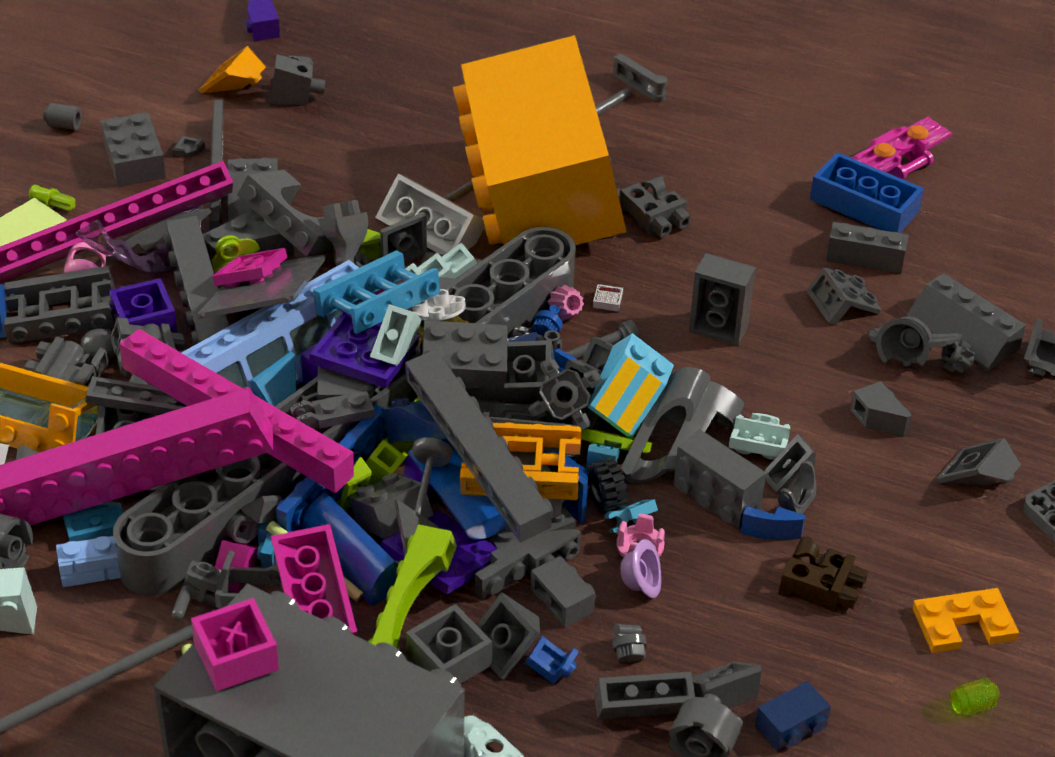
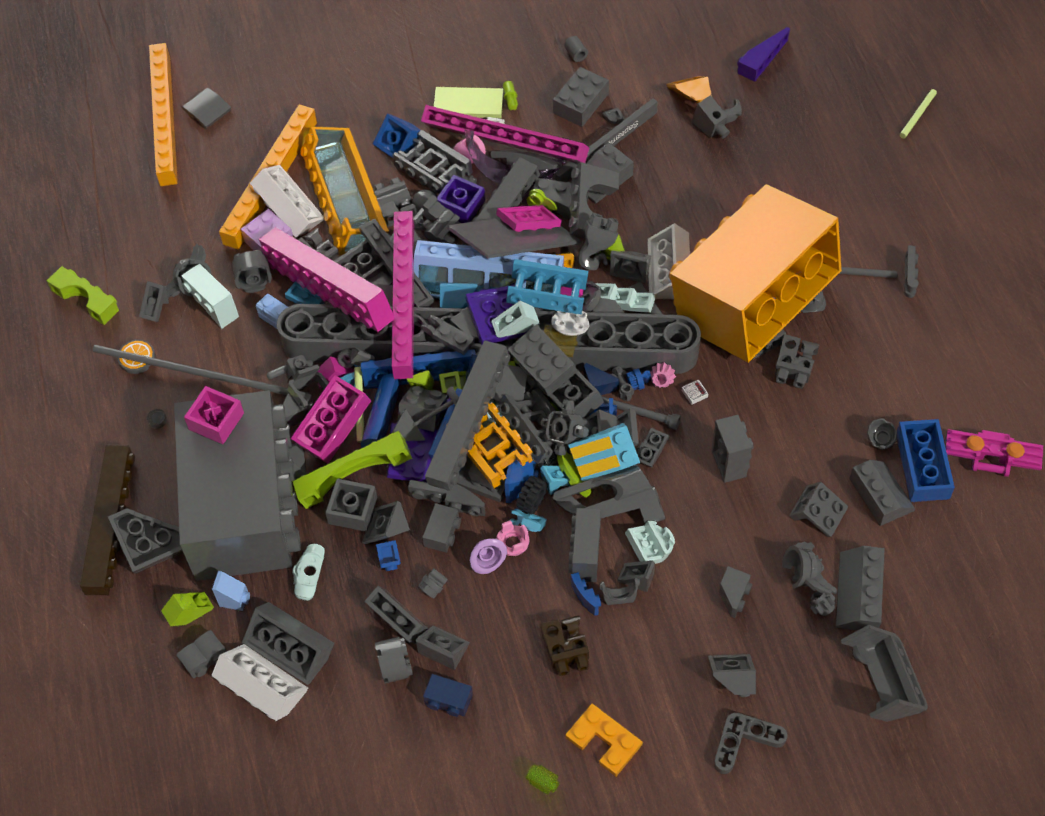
camera: 55 degrees right, 15 degrees up
(805, 204) = (881, 434): none -> dark grey hair

